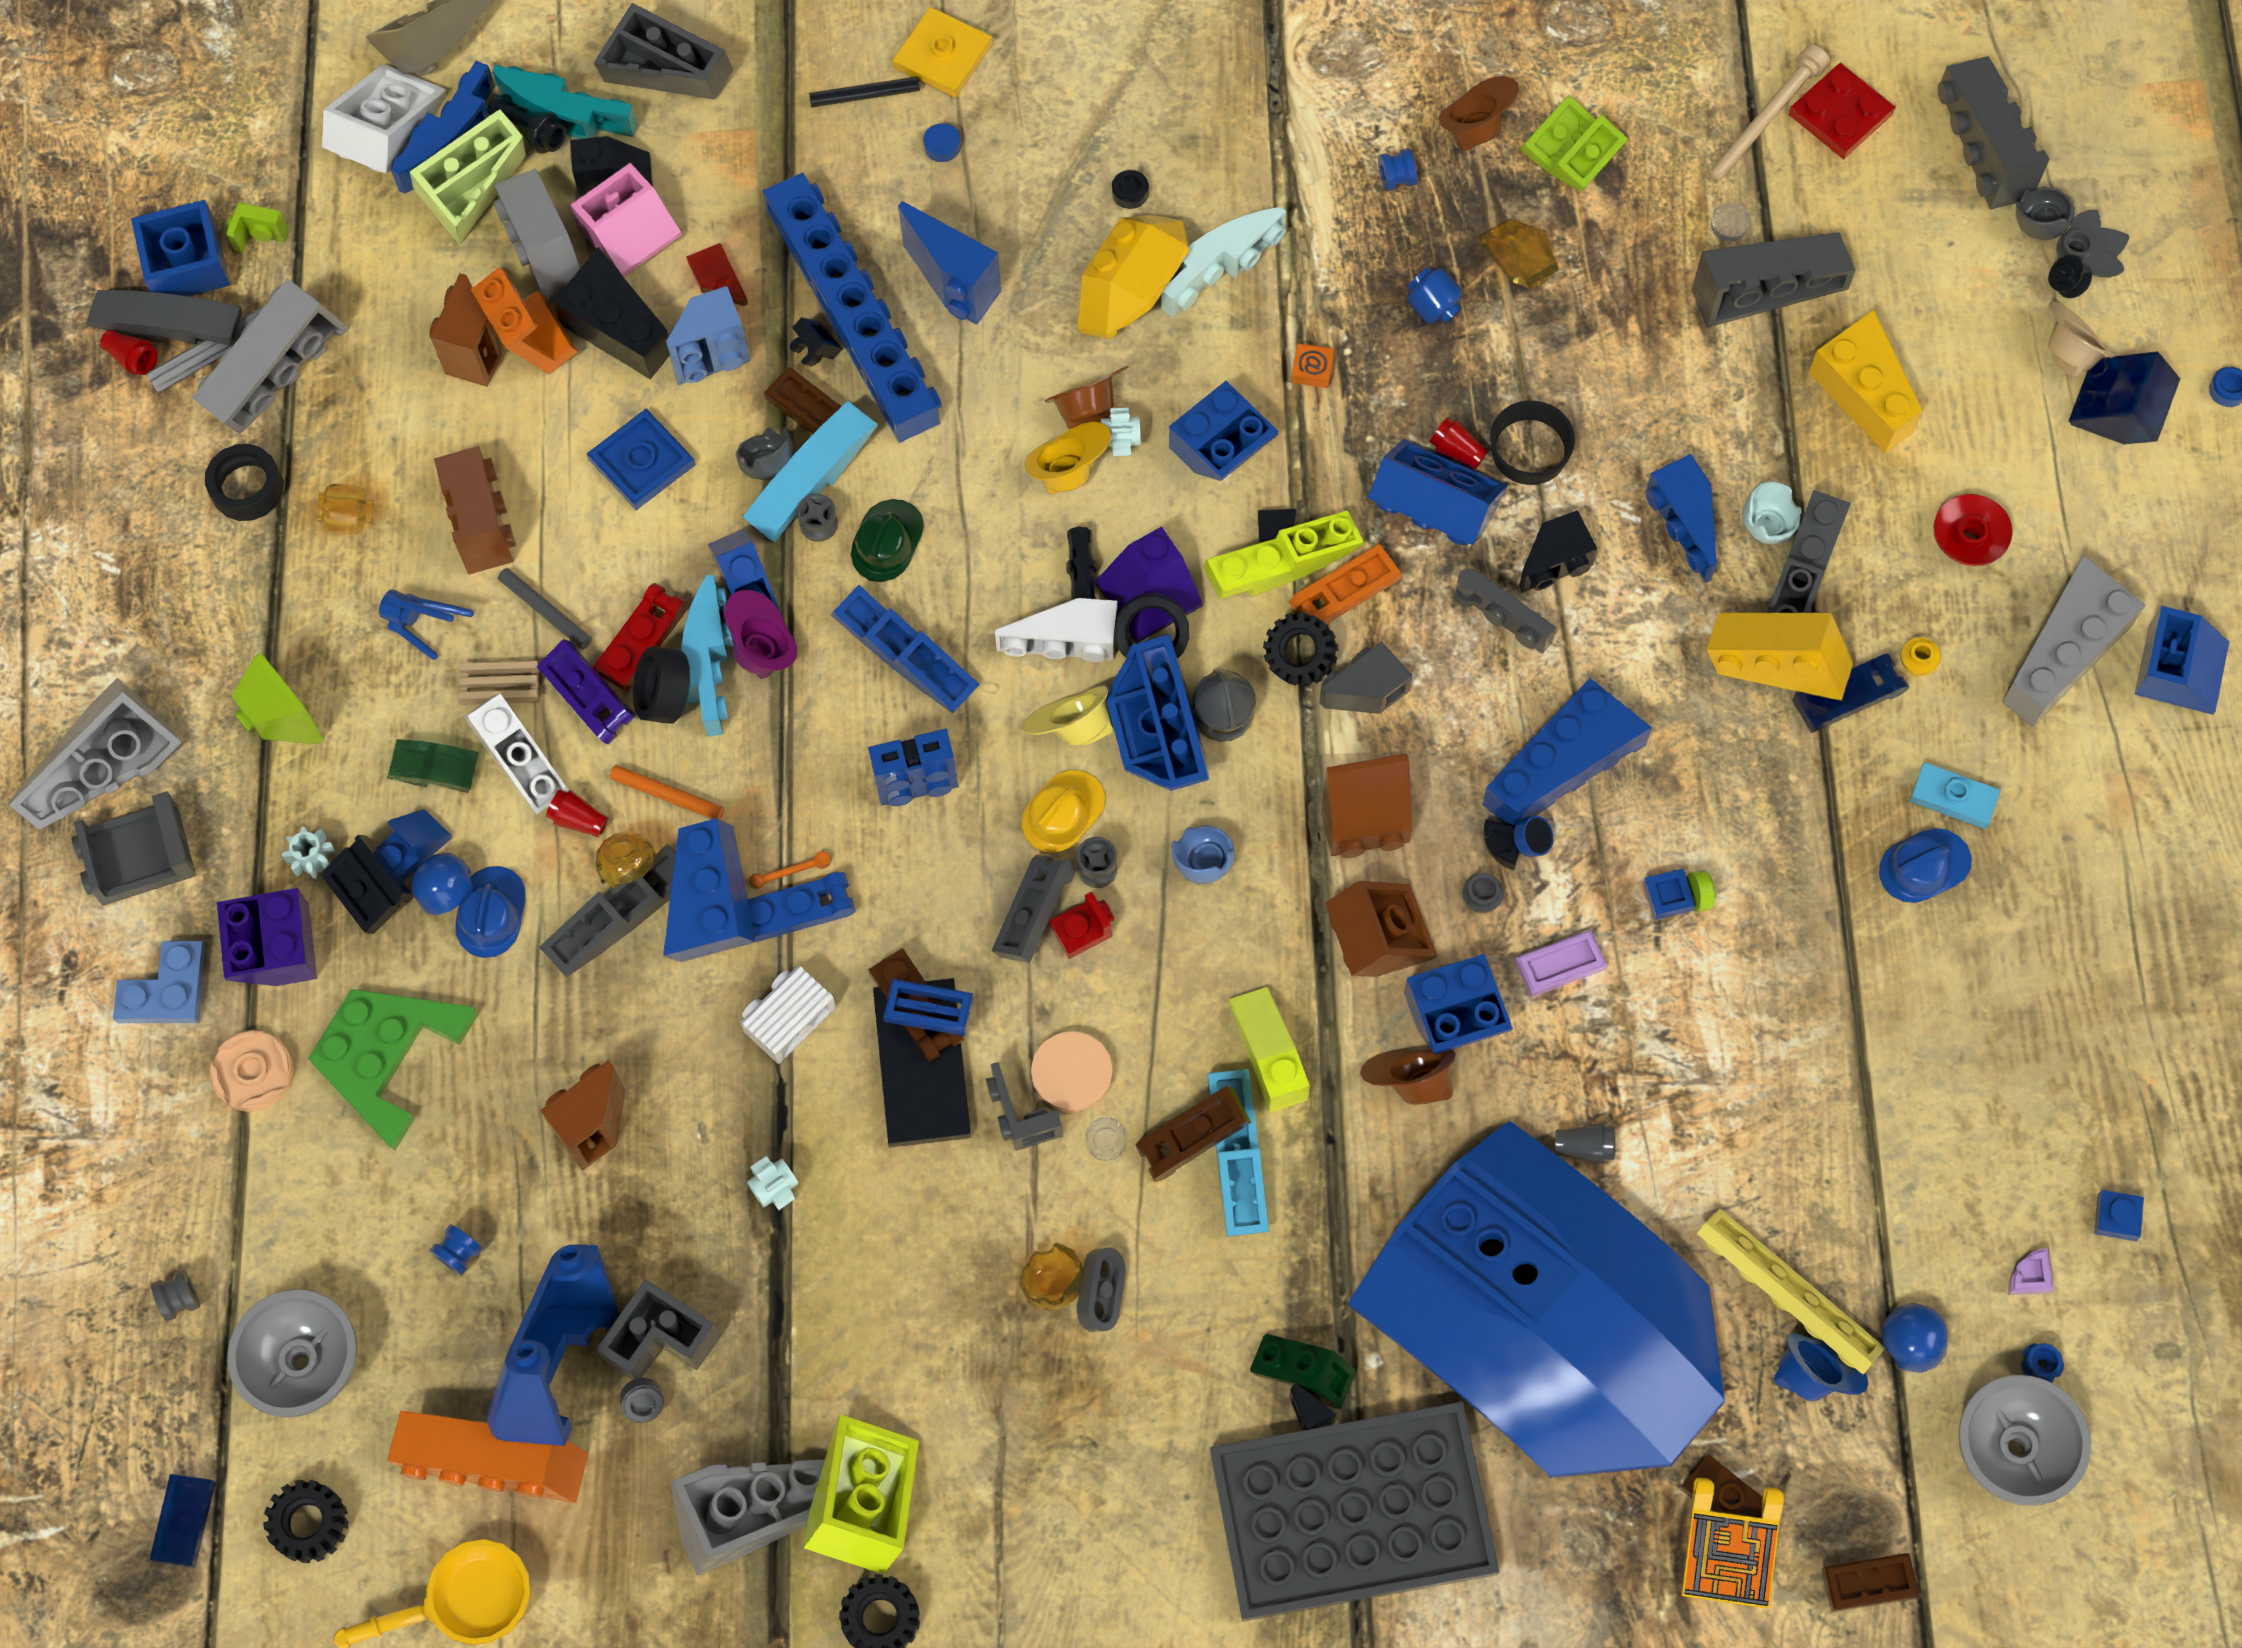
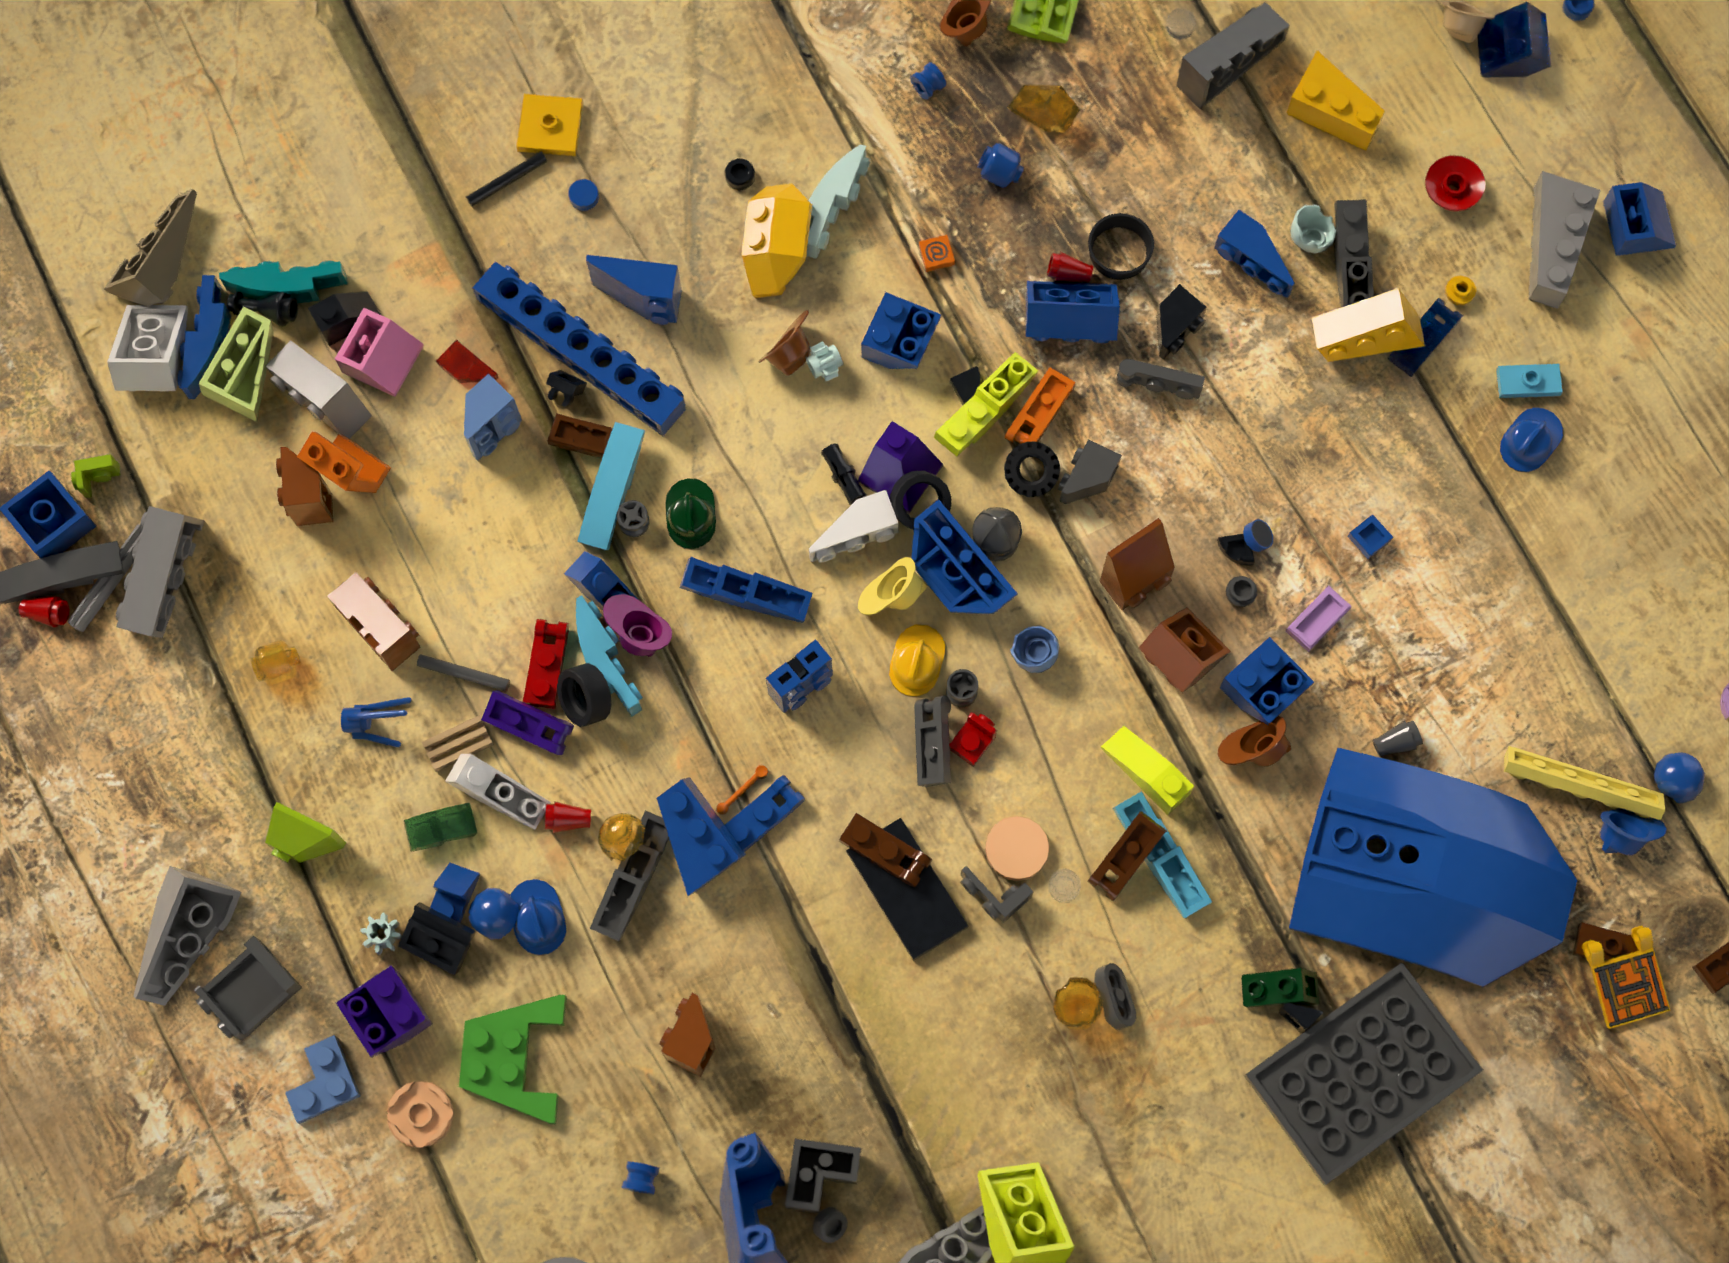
camera: 25 degrees left, 5 degrees up
(236, 457) = (177, 653): black tyre -> none
(612, 316) = (405, 429): black wedge -> none
(641, 459) = (478, 529): blue tile -> none
(662, 57) = (343, 214): dark grey wedge -> none
(666, 792) = (620, 772): orange bar -> none
(765, 455) = (572, 487): dark grey hair -> none
(772, 1182) = (846, 1025): light aqua gear -> none
(787, 1013) = (794, 897): white brick -> none
(925, 1022) = (904, 860): blue tile -> none
(1068, 459) = (796, 396): yellow piece -> none
(1569, 750) = (1256, 458): blue wedge -> none
(1702, 890) = (1393, 523): lime tile -> none

